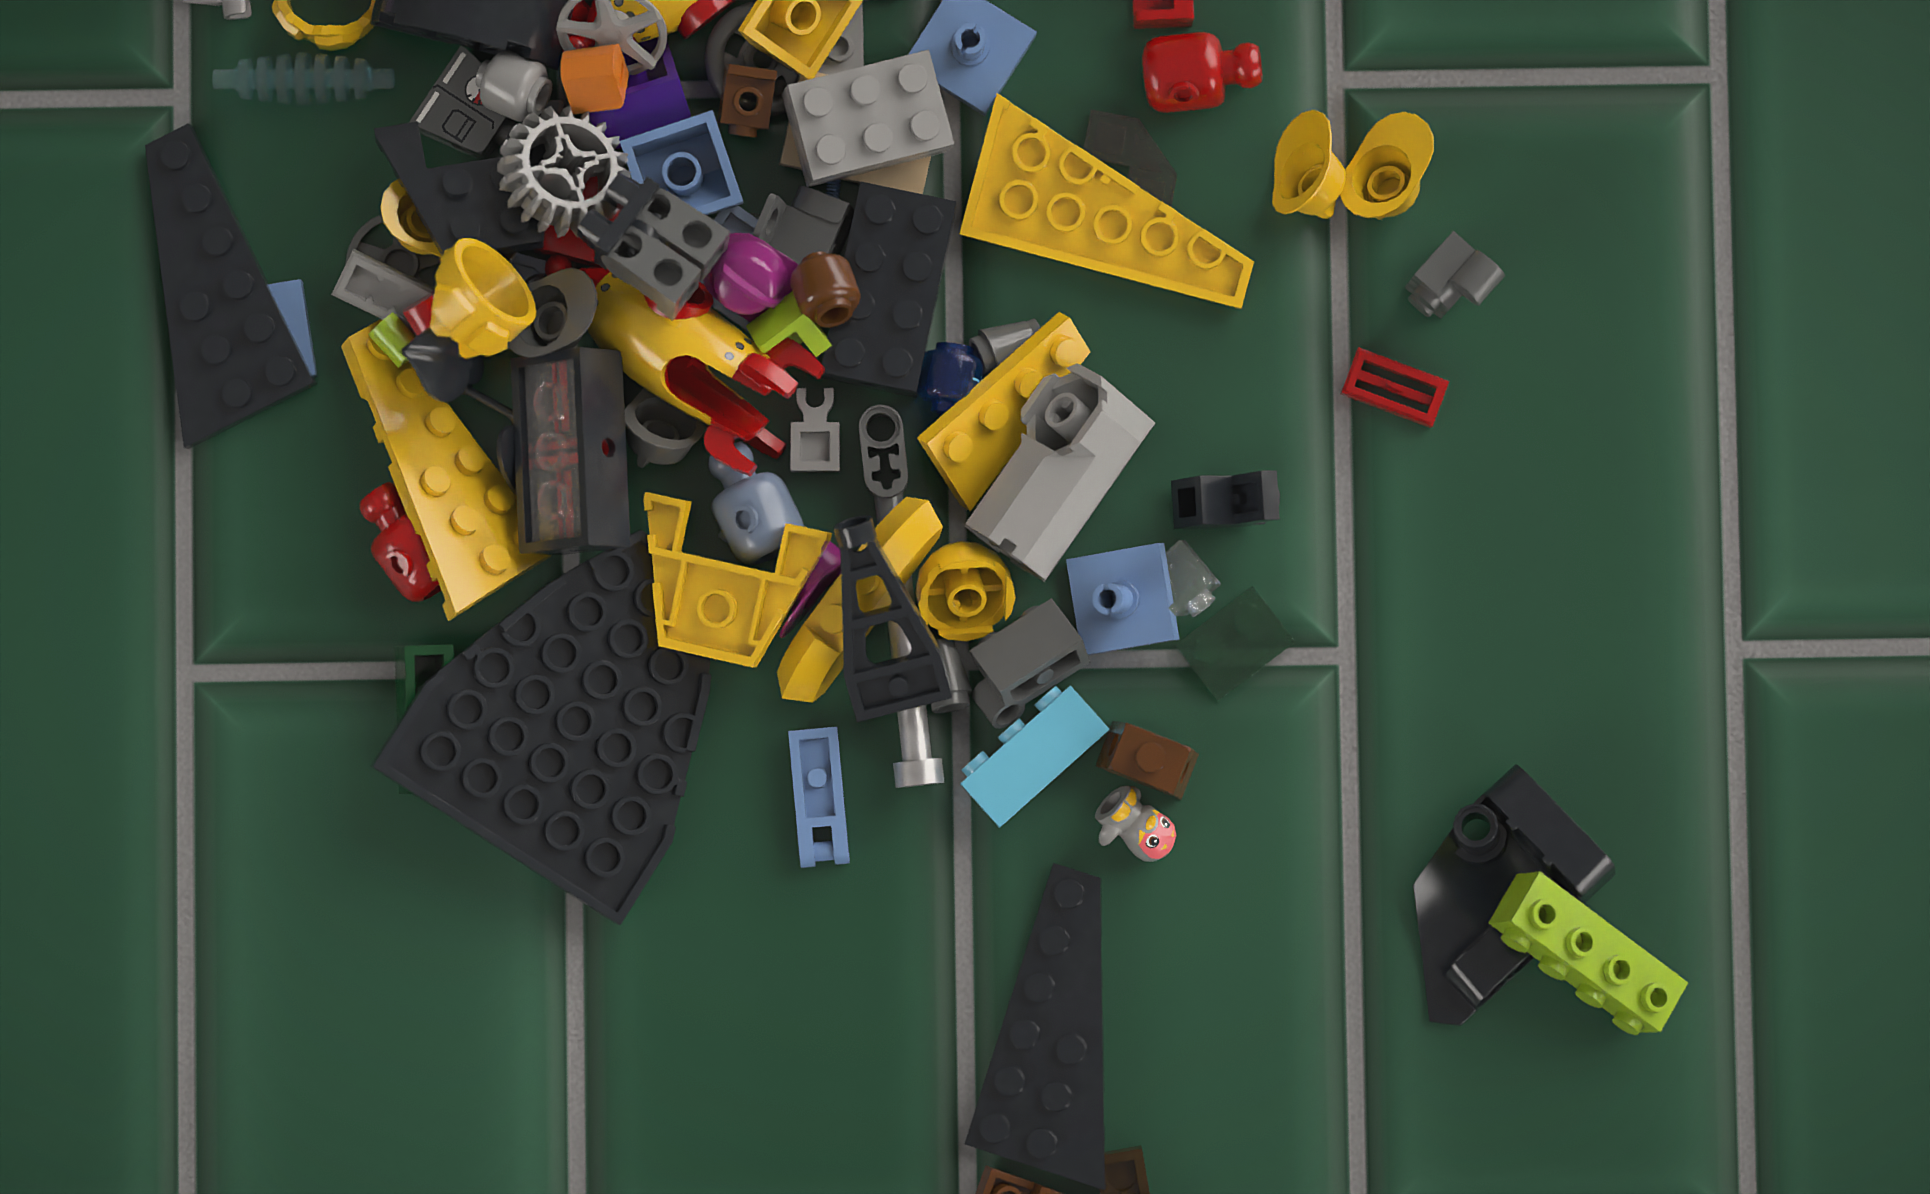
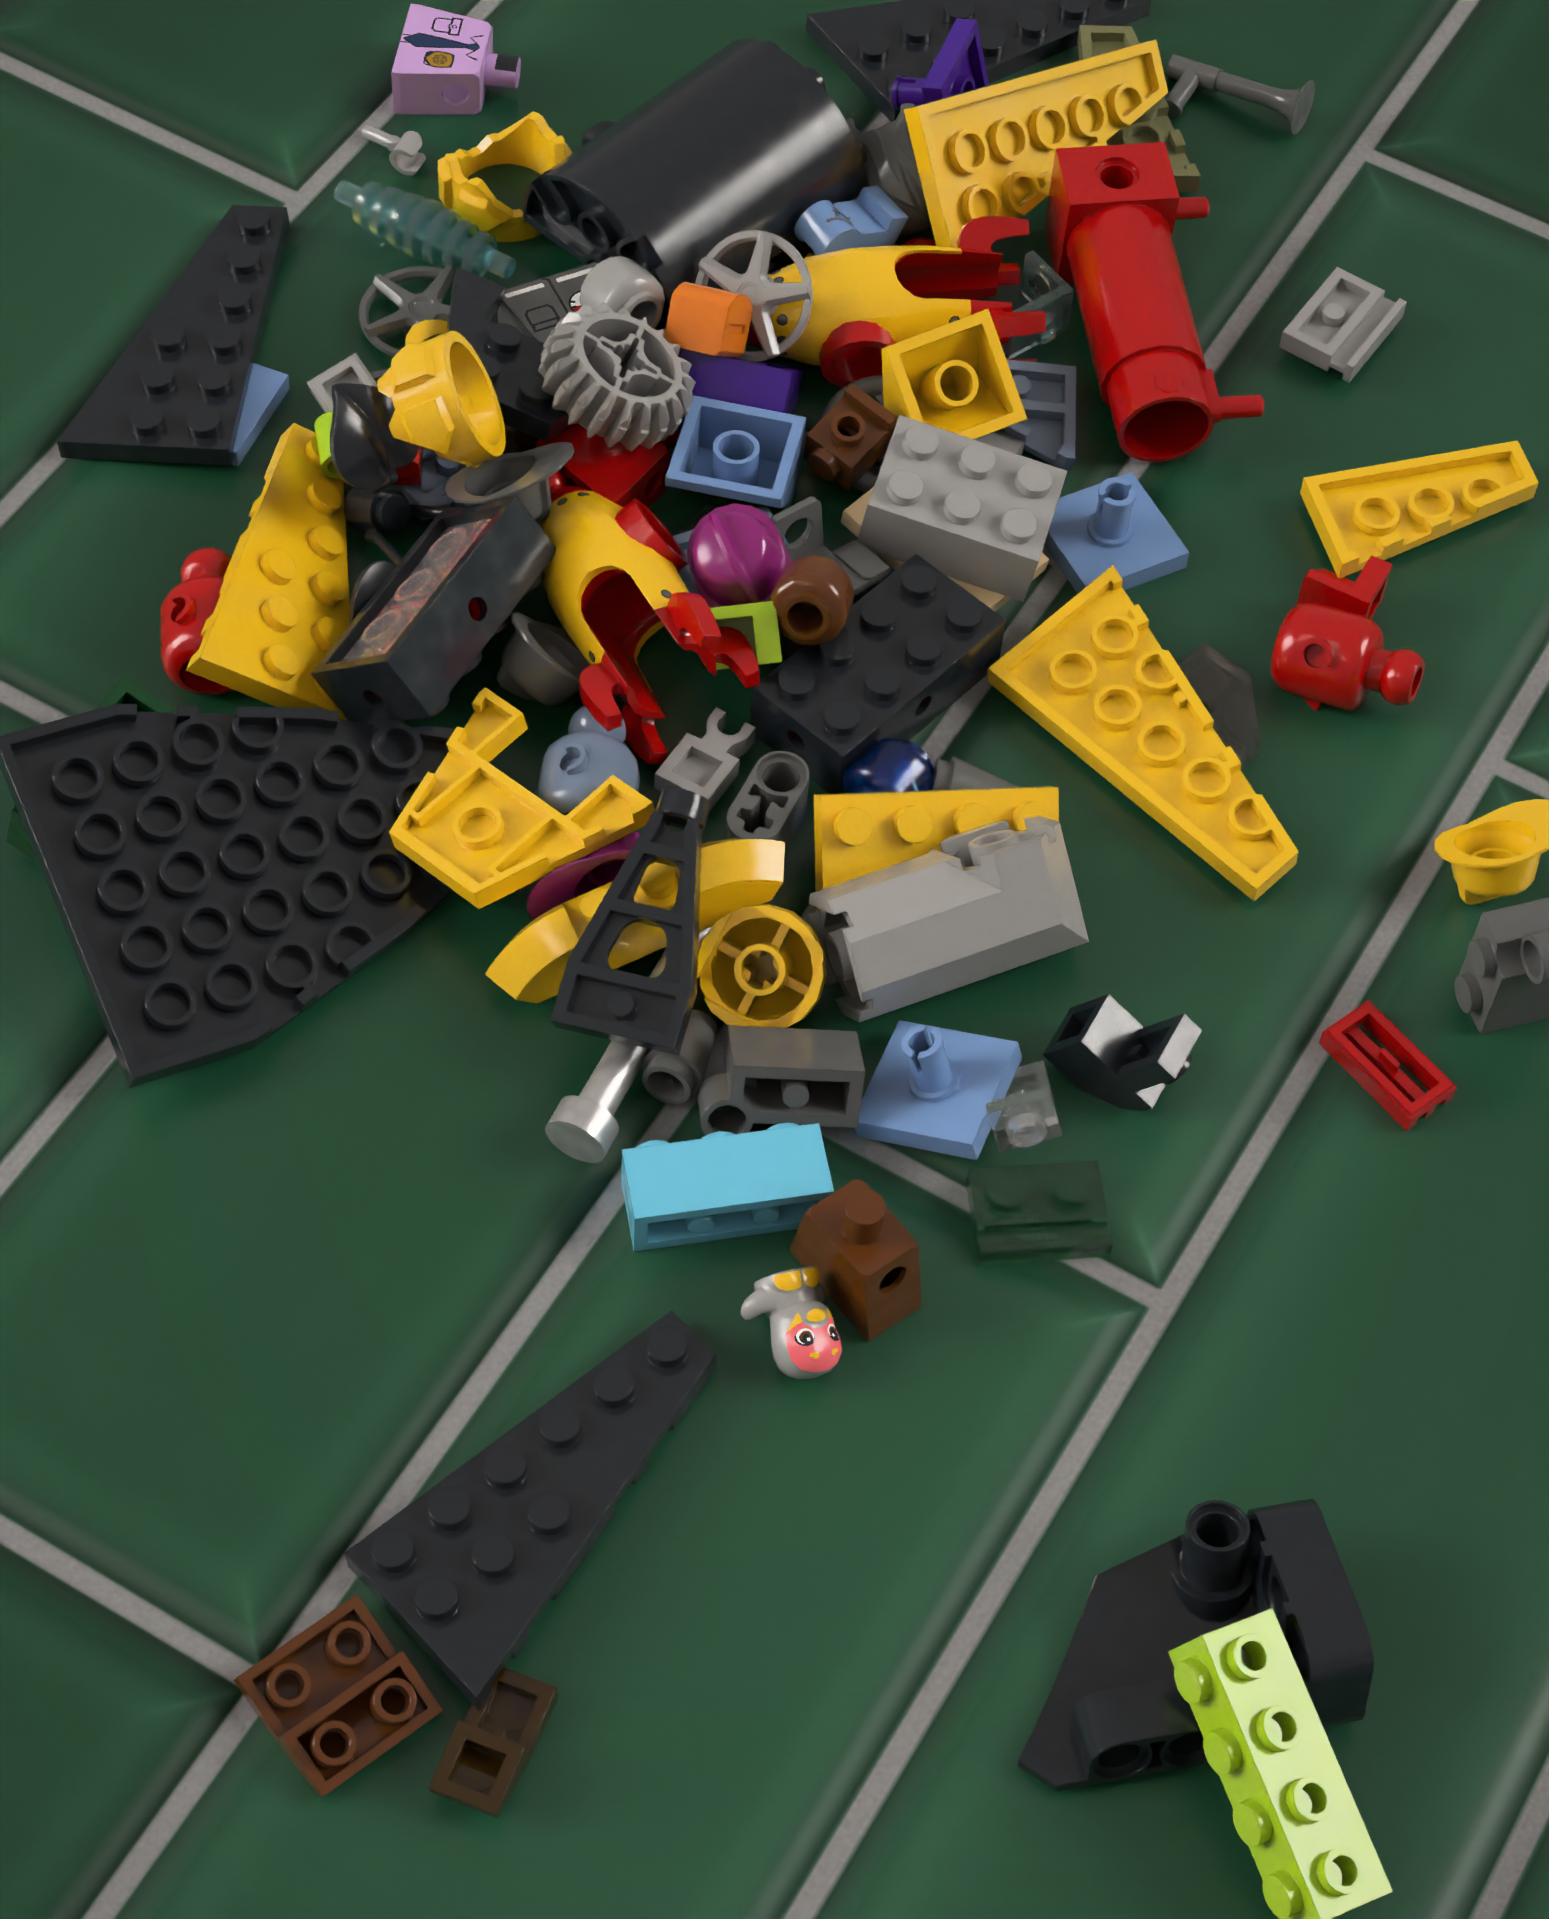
camera: 30 degrees right, 30 degrees down
(351, 154) = (412, 307): none -> dark grey wheel
(654, 242) = (665, 452): dark grey hips -> none
(818, 794) = (452, 1093): medium blue plate -> none
(1306, 170) = (1414, 808): yellow piece -> none

